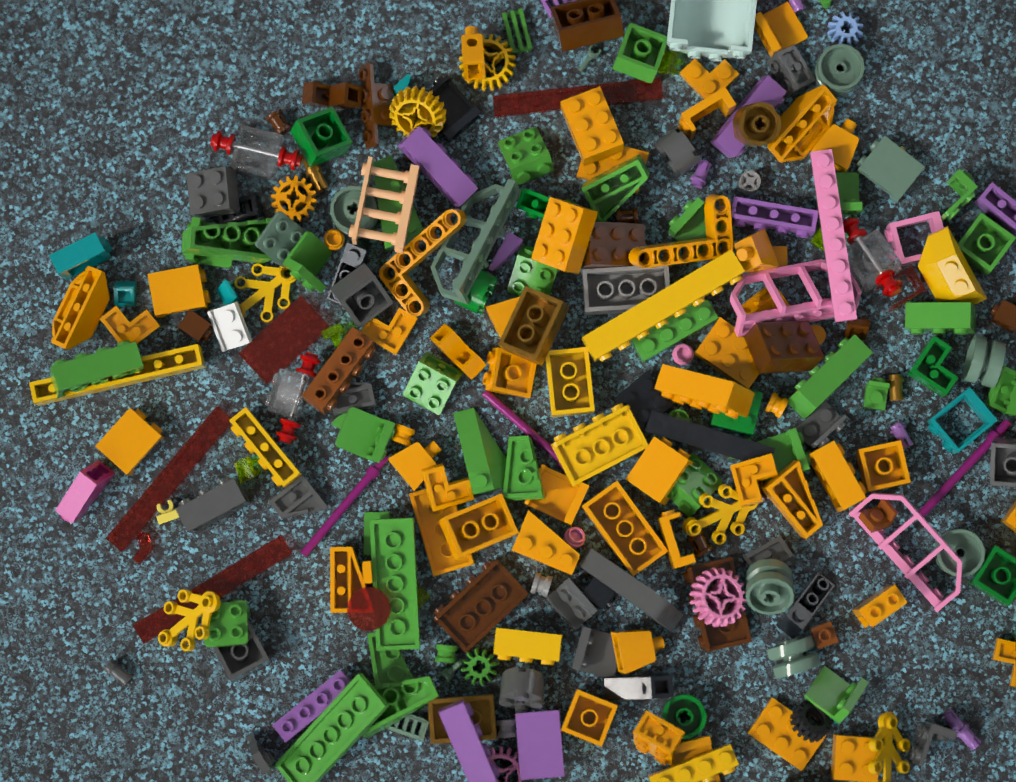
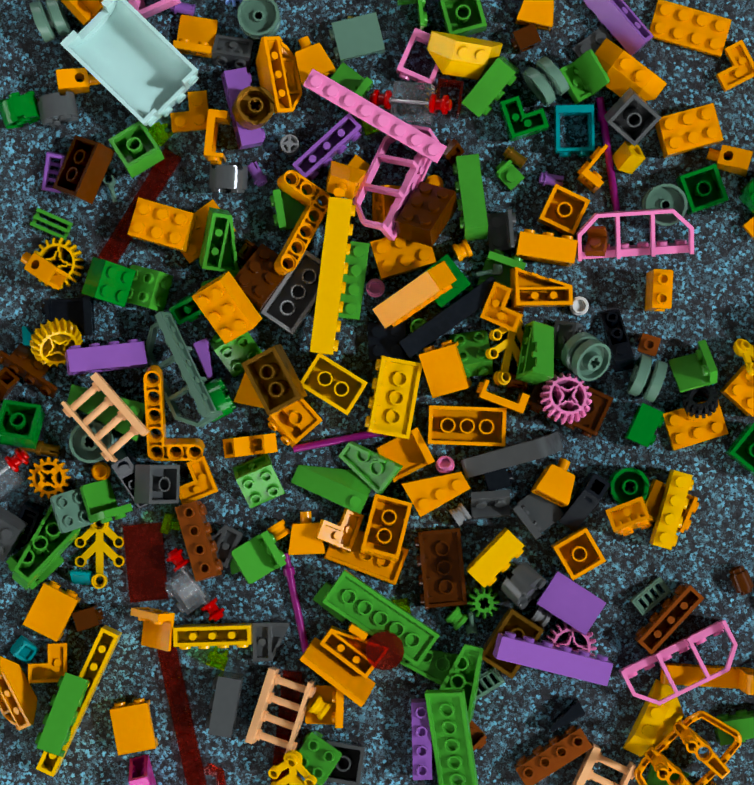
camera: 55 degrees left, 5 degrees up
(166, 515) = (206, 741): light yellow tile -> none
(229, 326) = (106, 594): white plate -> none
(233, 393) = (157, 627): none -> light orange bracket
(246, 539) = (262, 715): none -> light nougat fence
(273, 592) = (319, 707): none -> yellow wheel
(278, 595) = (335, 713): none -> light orange bracket
(316, 583) = (337, 673): none -> light orange tile
(355, 753) = (478, 736): none -> dark orange bracket
(505, 117) = (108, 281): none -> green brick
(737, 540) = (536, 354): none -> bright green wedge
(749, 688) = (644, 425): none -> green brick
(783, 449) = (497, 270): none -> sand green hand
(809, 547) = (580, 306): none -> white plate
(930, 470) = (590, 179): none -> light orange bracket
(975, 488) = (628, 157): none -> yellow panel

